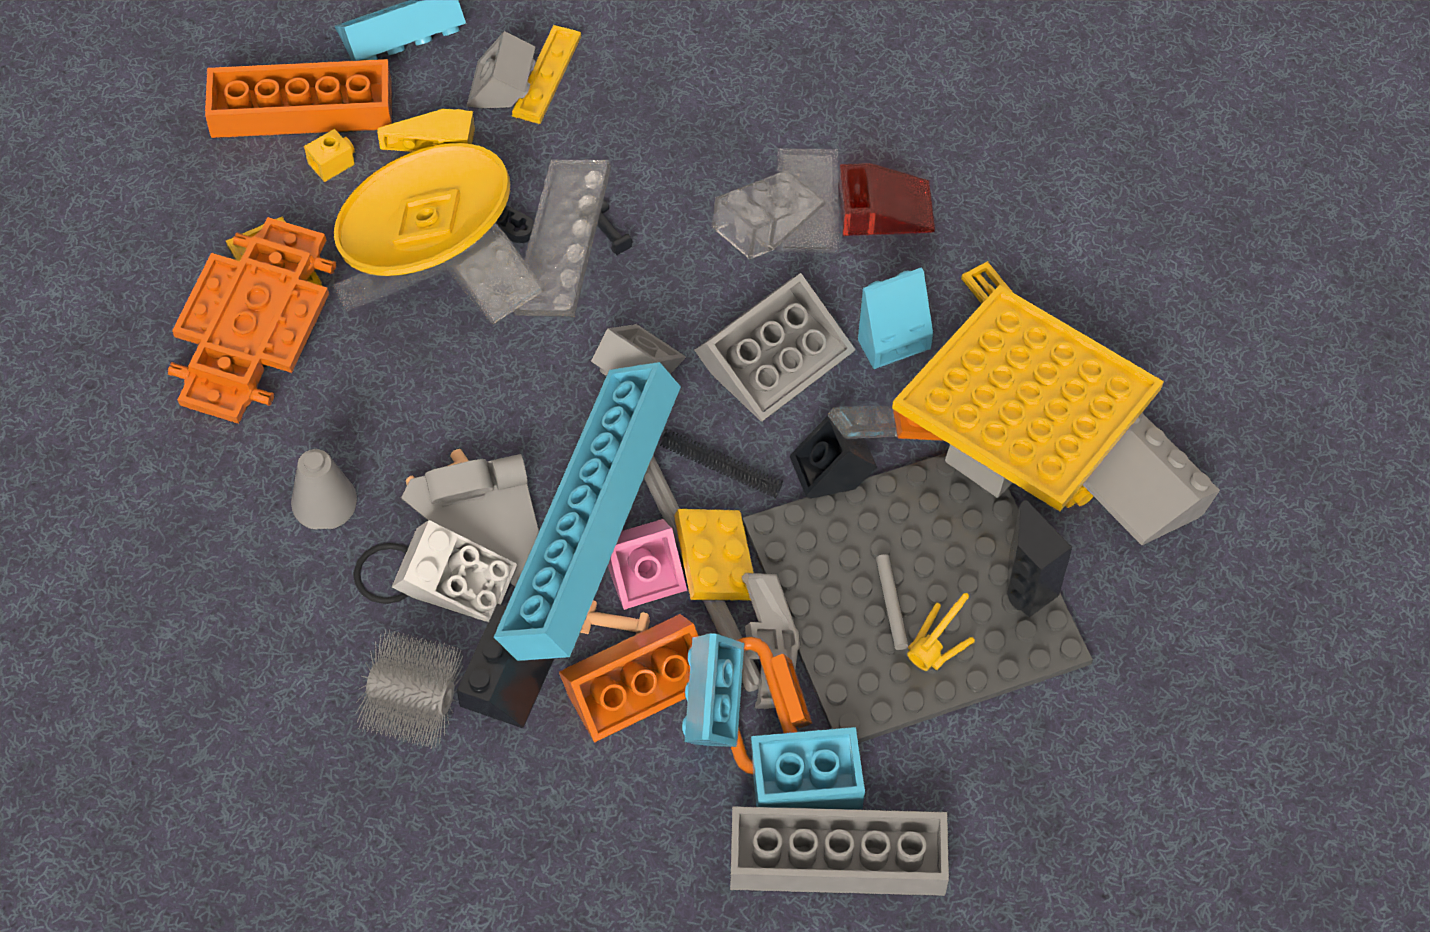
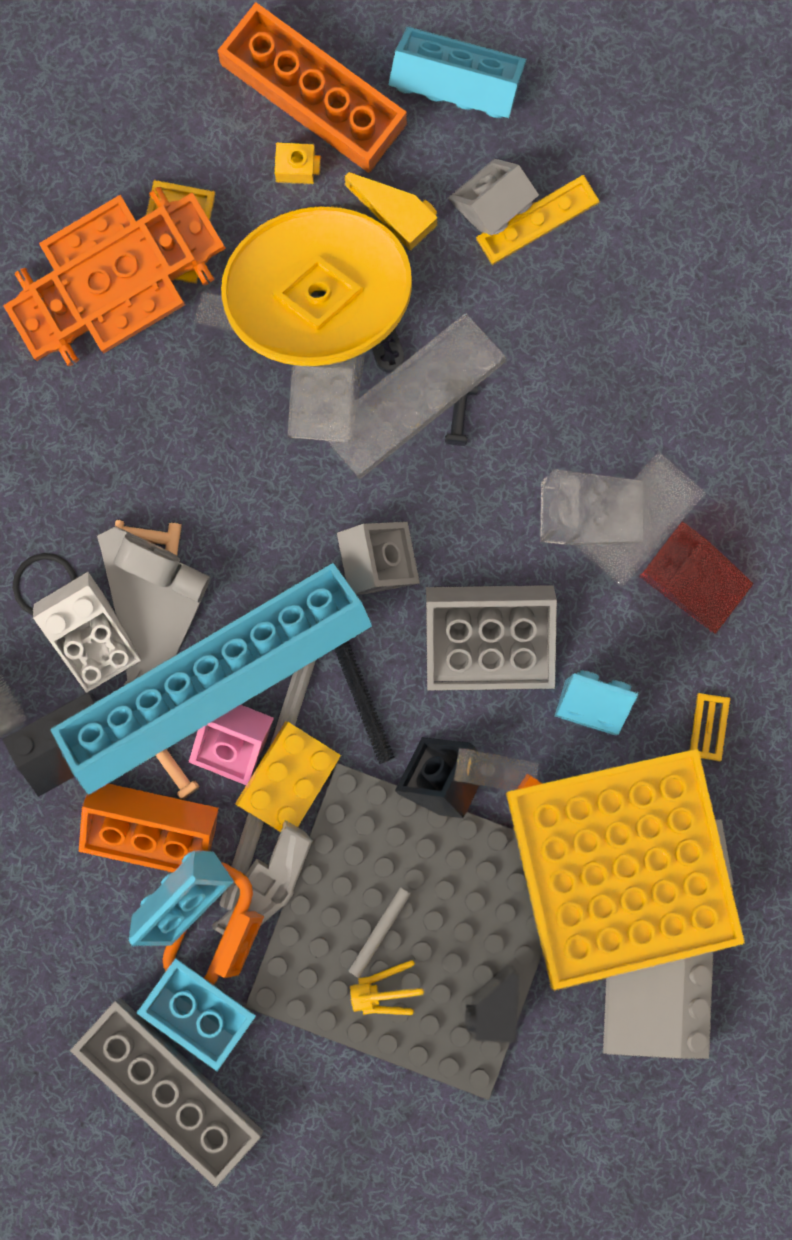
camera: 40 degrees right, 25 degrees up
(321, 492) = (46, 483): light grey cone -> none

